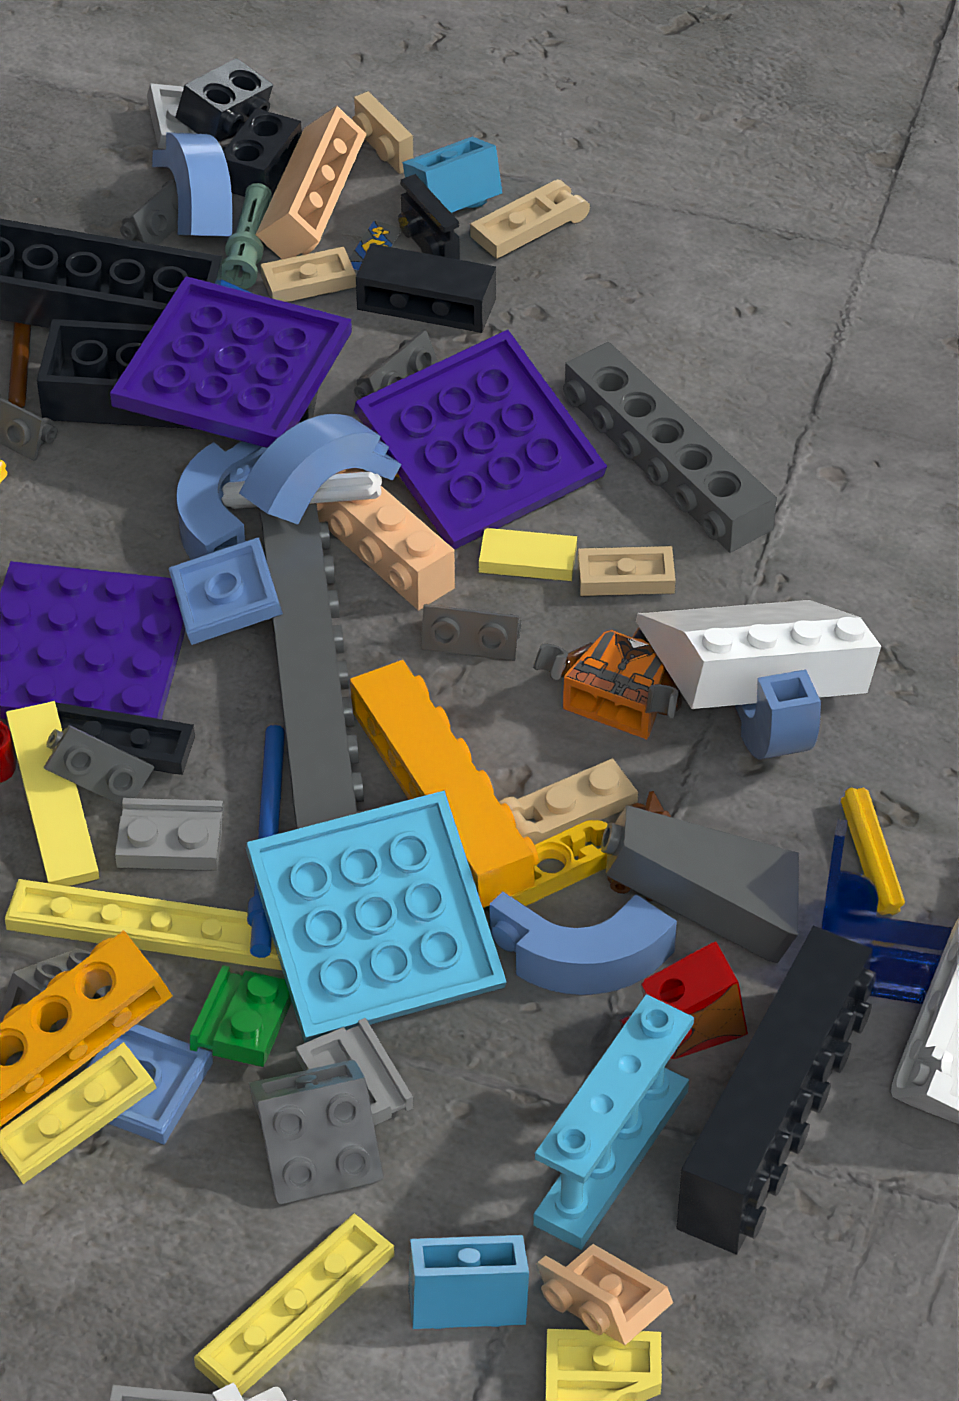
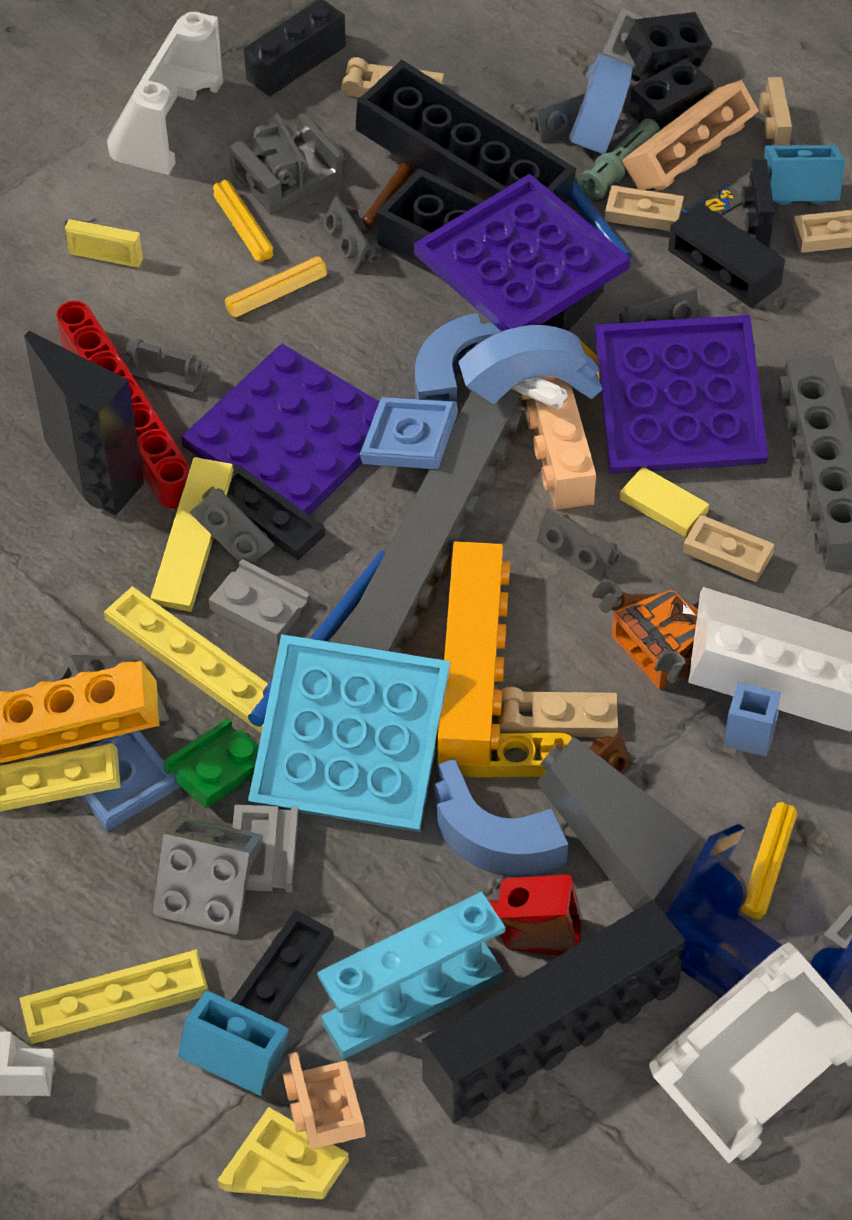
camera: 30 degrees right, 5 degrees up
(461, 1179) = (284, 966): none -> black plate

